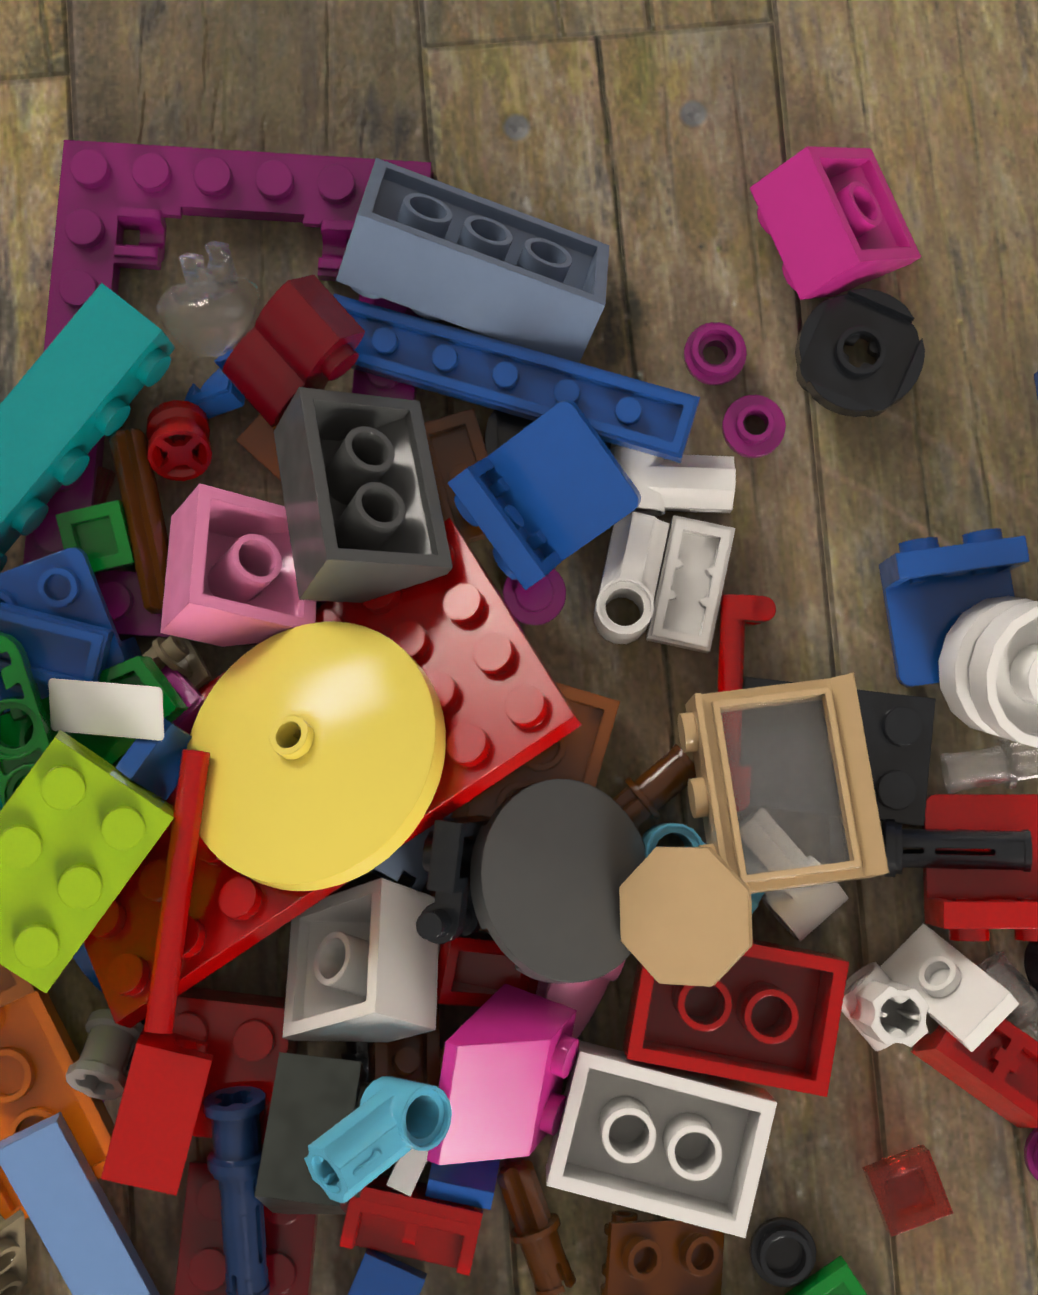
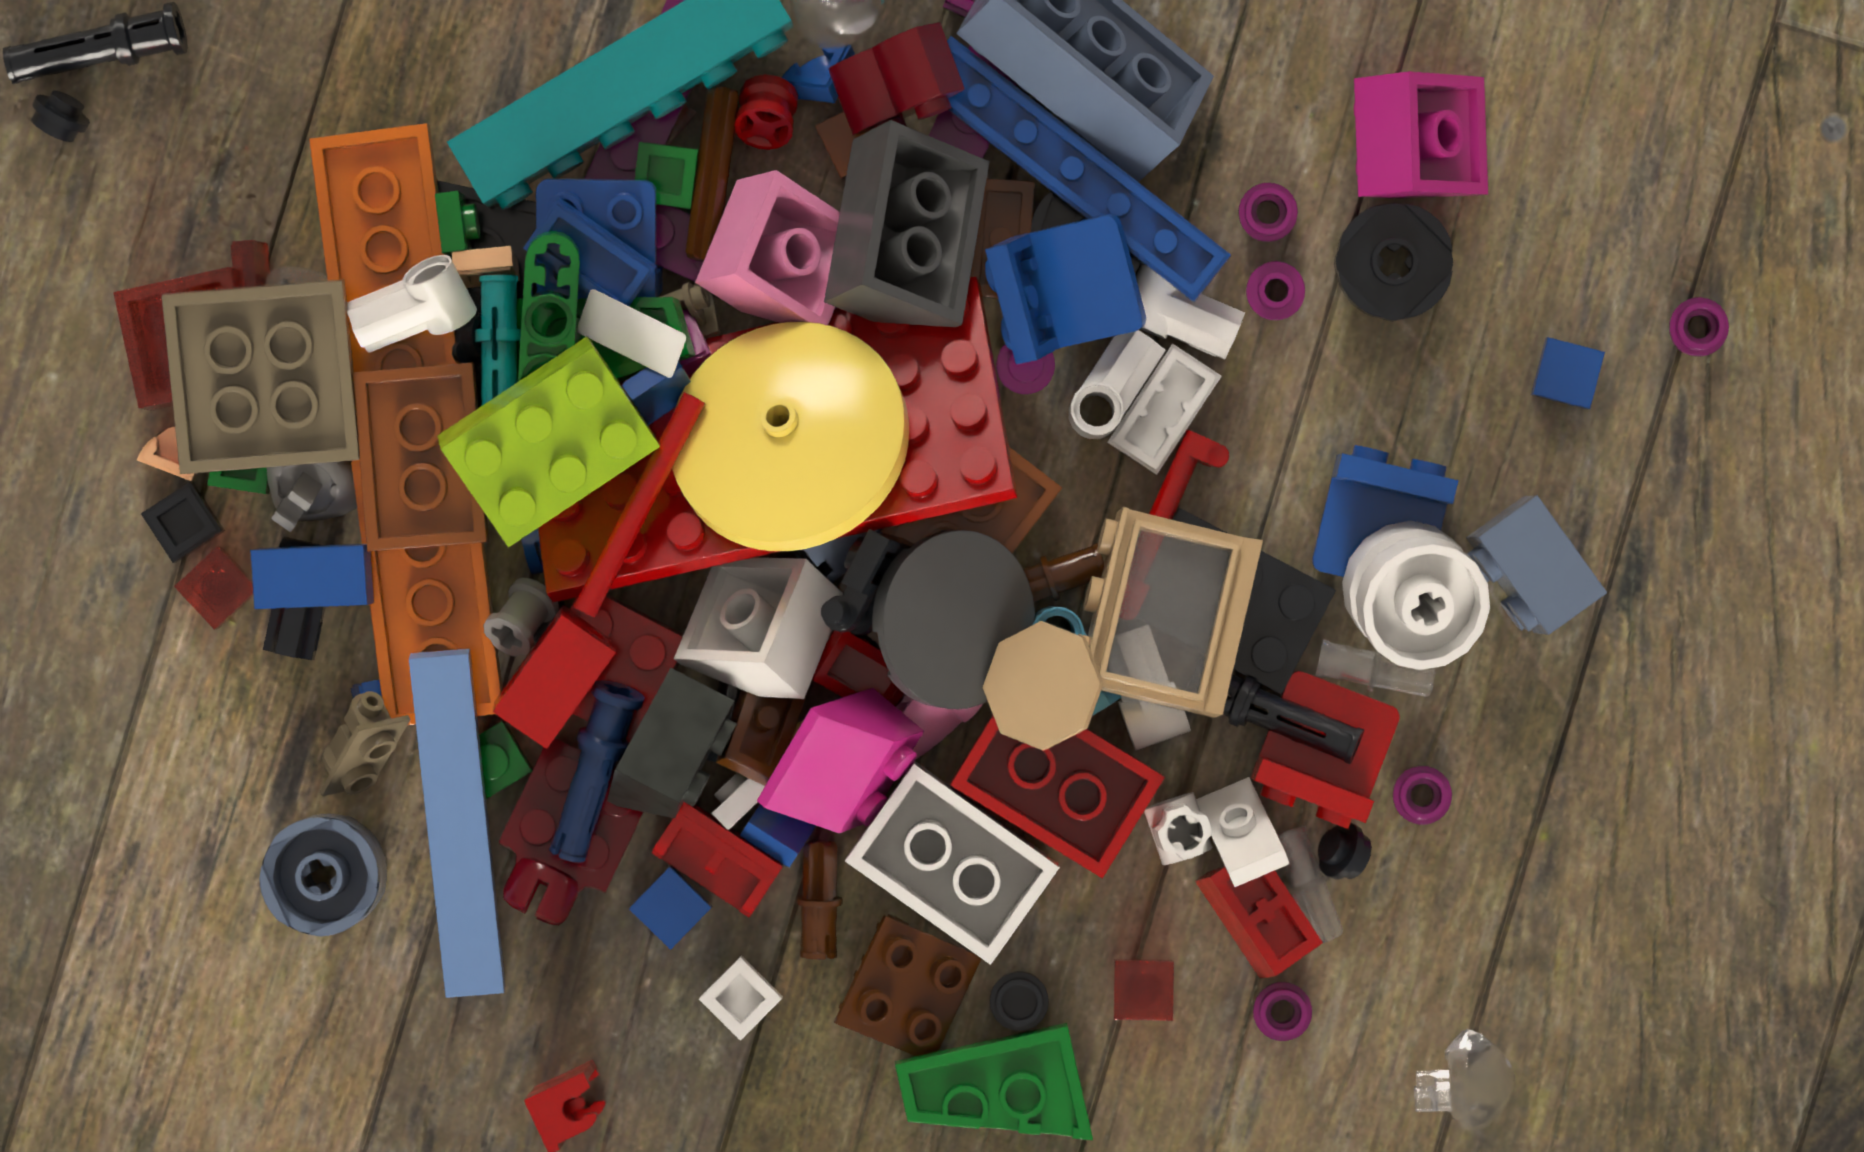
camera: 20 degrees right, 5 degrees up
(145, 1215) = (501, 759): none -> green plate
(386, 1126) = (730, 759): medium azure piece -> none

